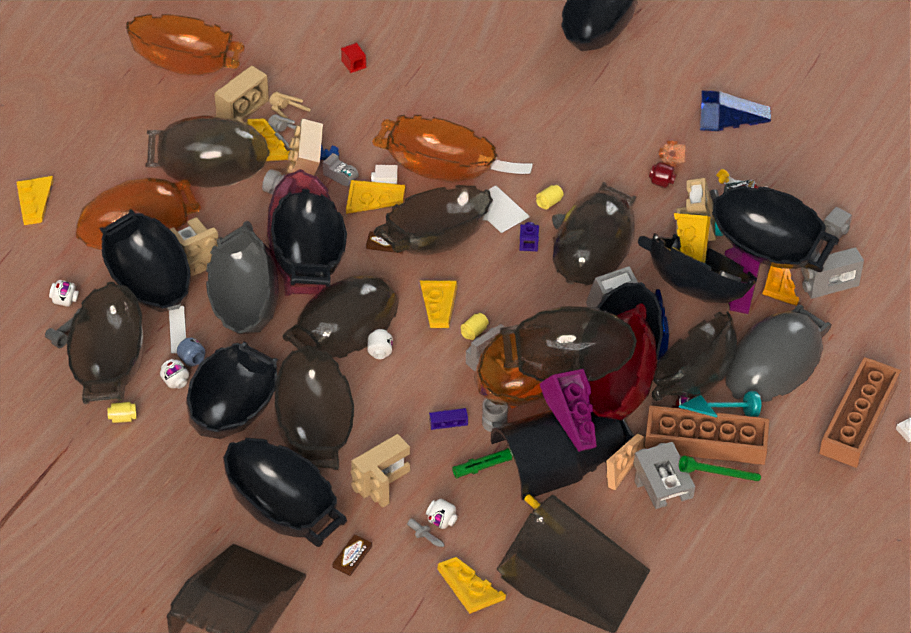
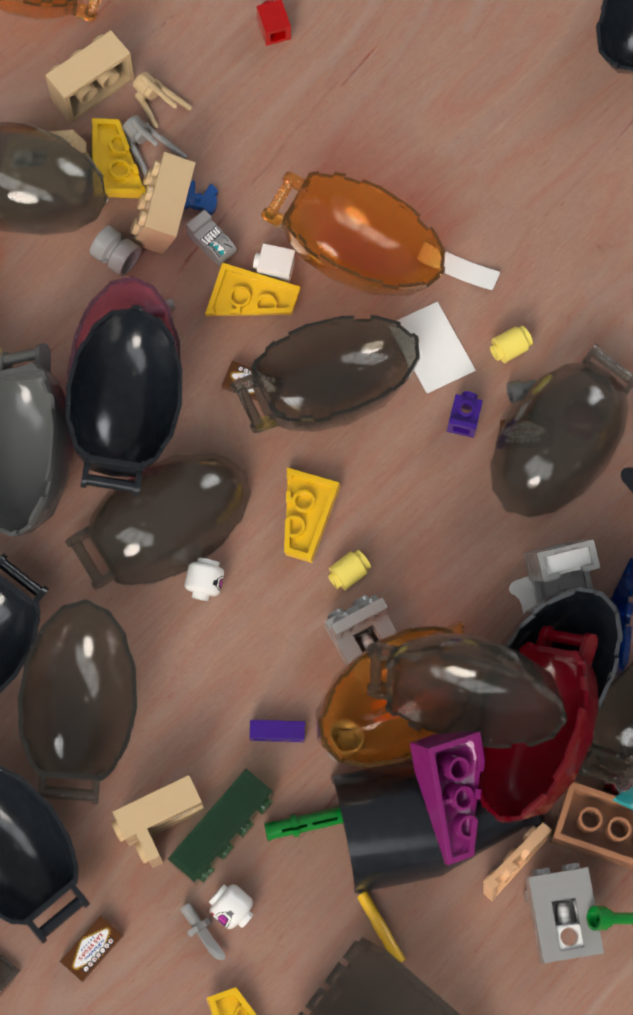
camera: 10 degrees right, 25 degrees up
(424, 473) = (221, 826): none -> clear green brick

